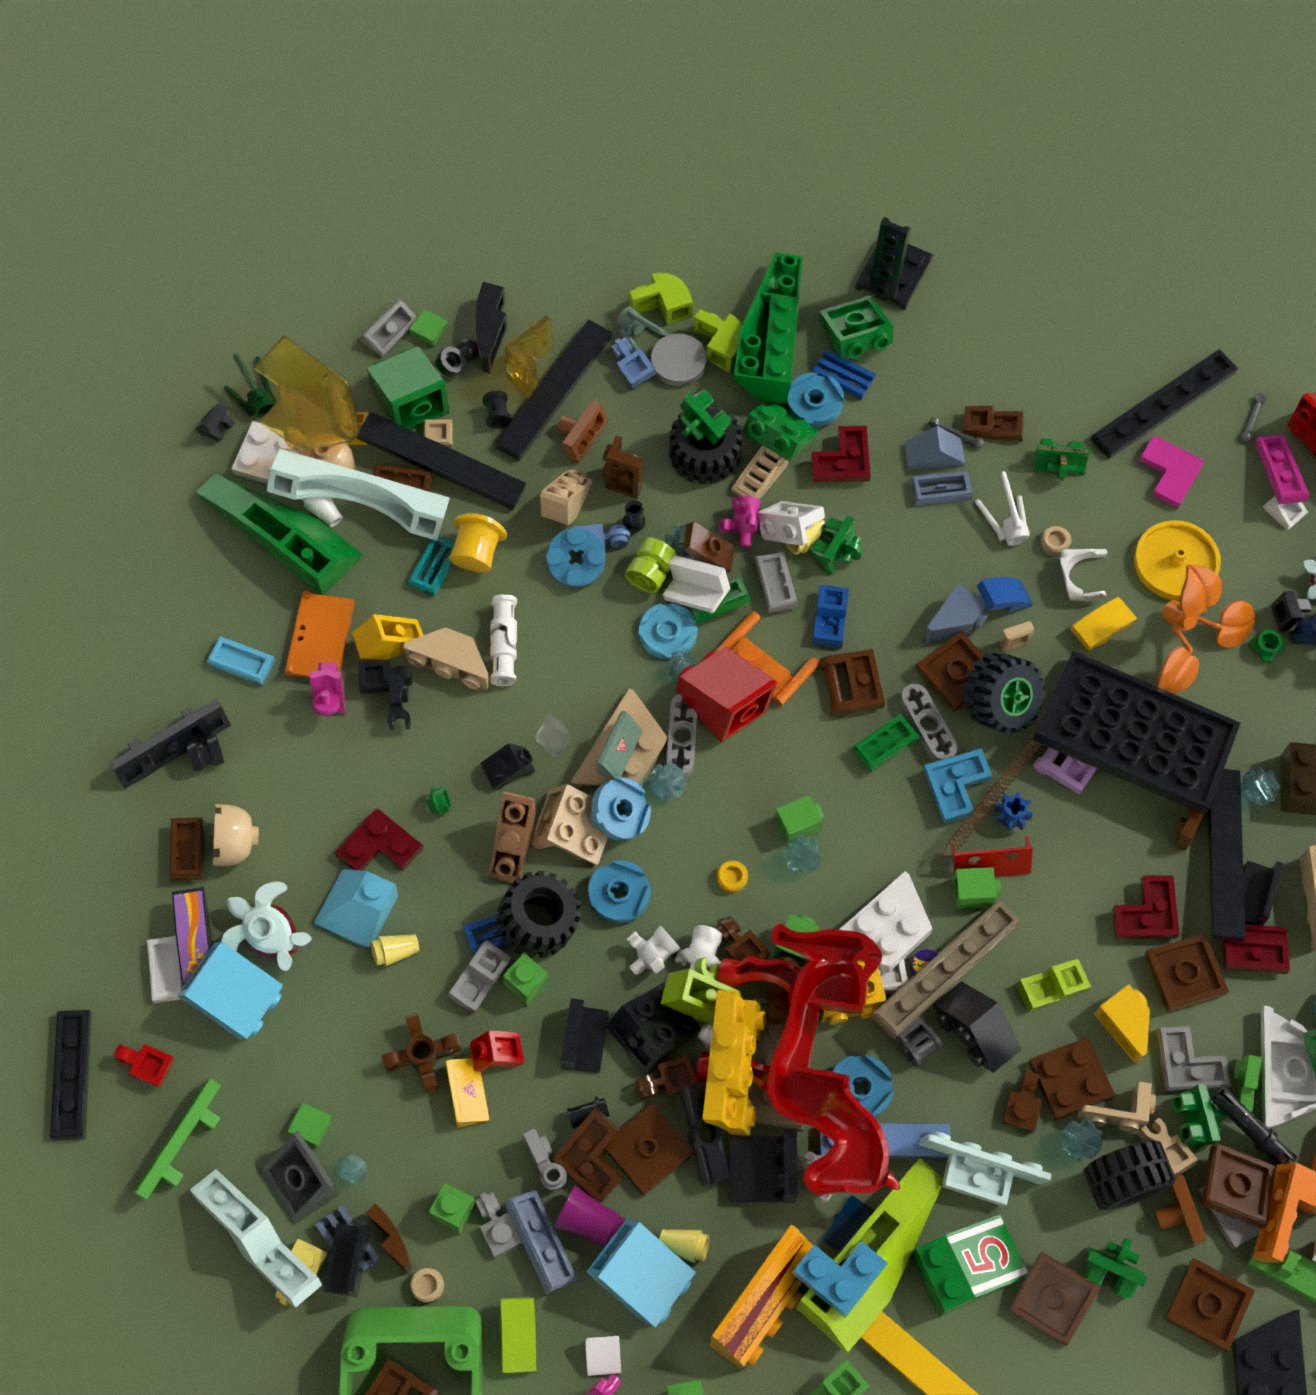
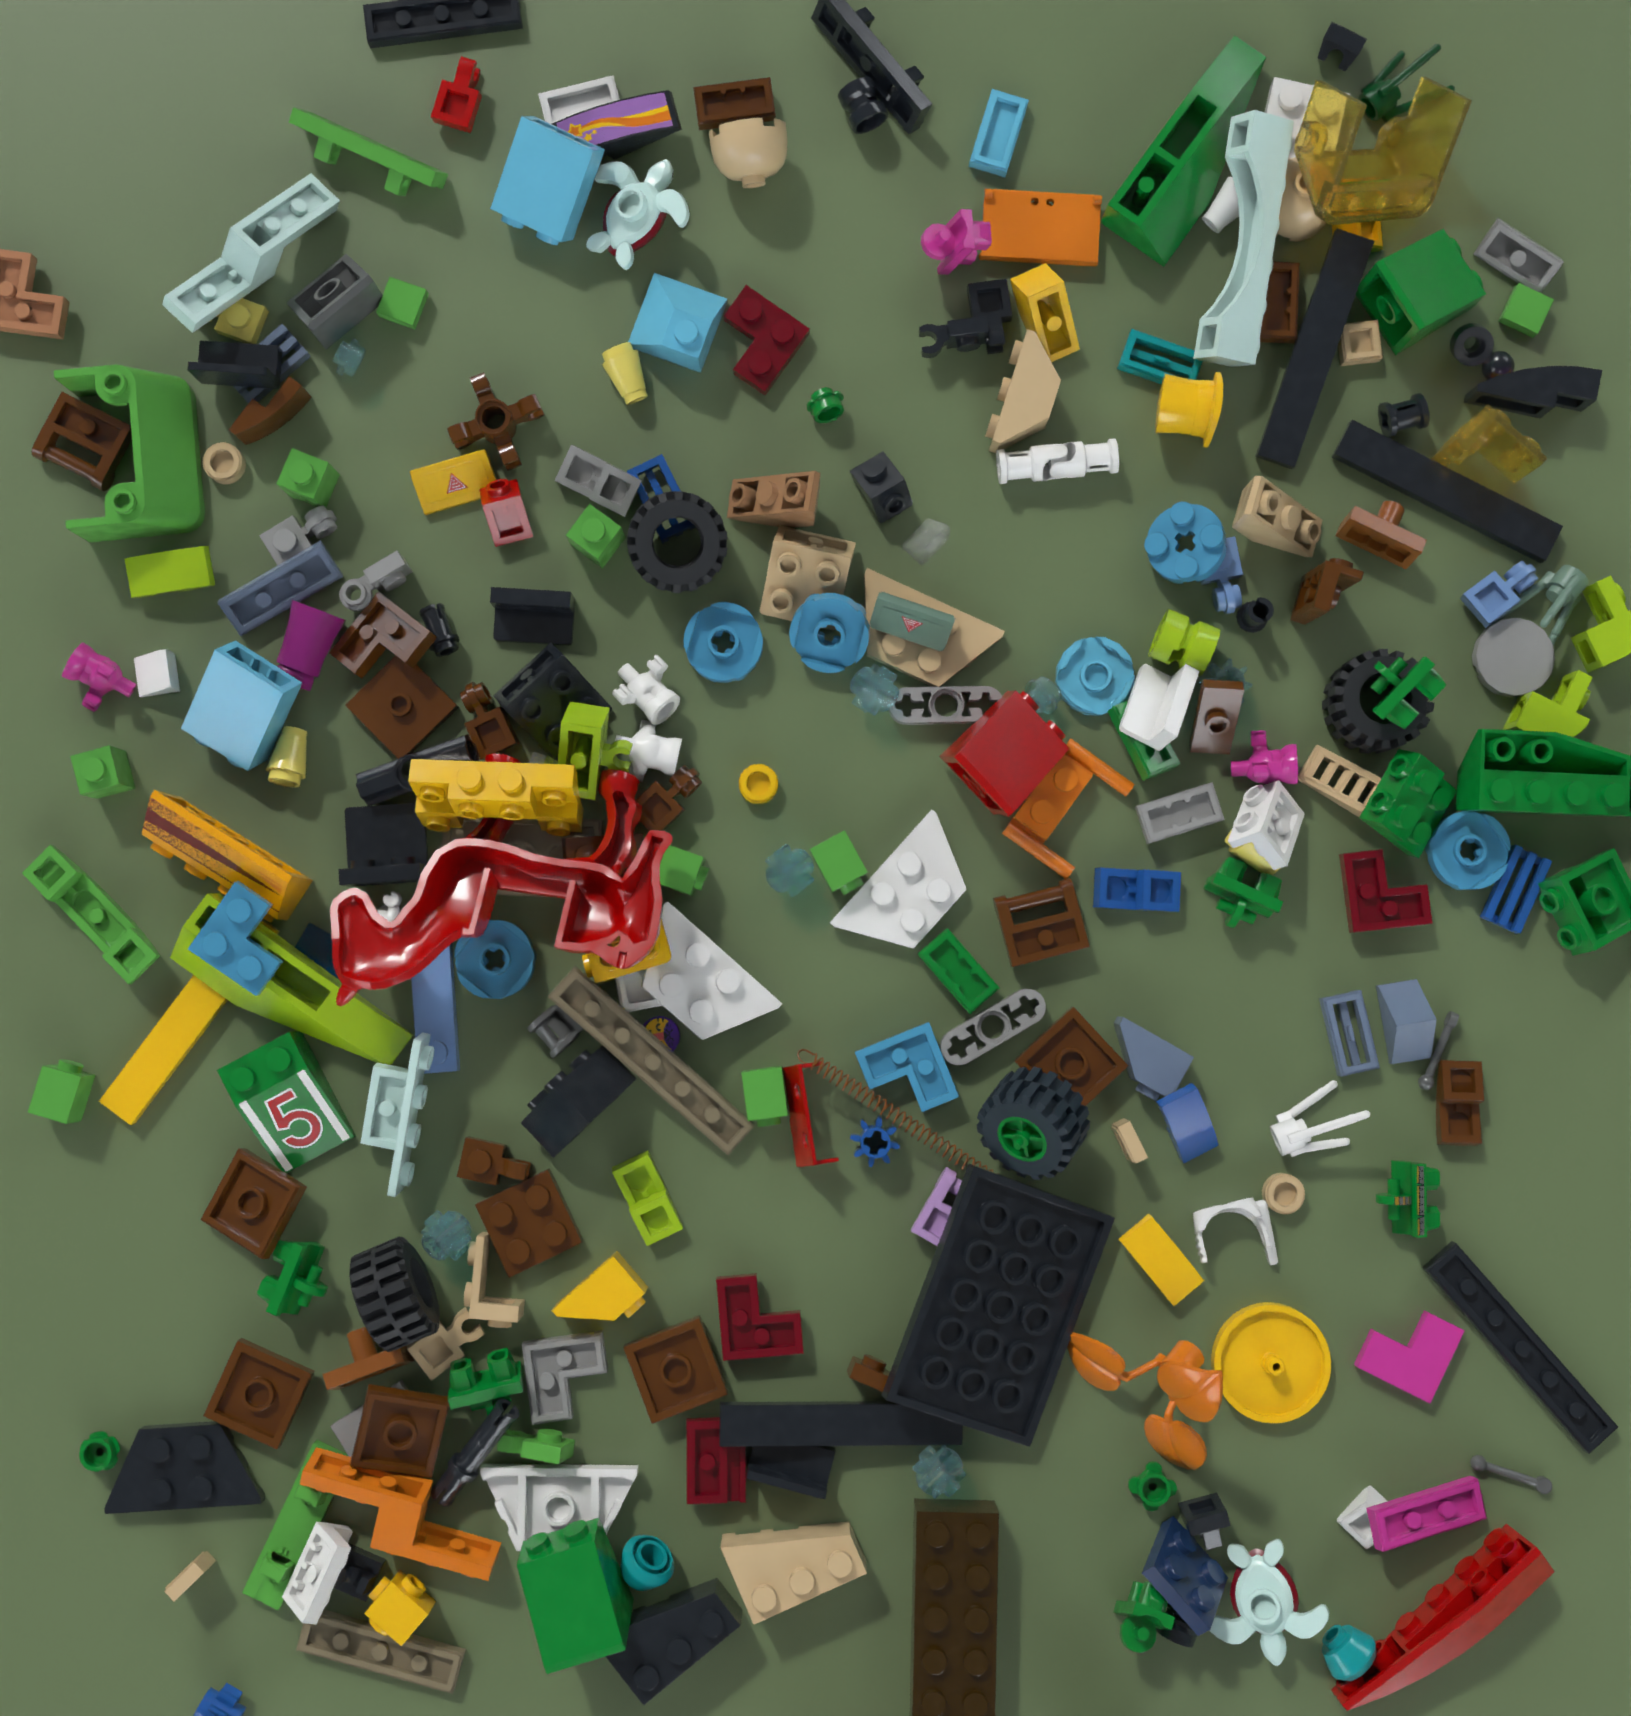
camera: 85 degrees right, 20 degrees up
(823, 771) = (907, 890): none -> white wing

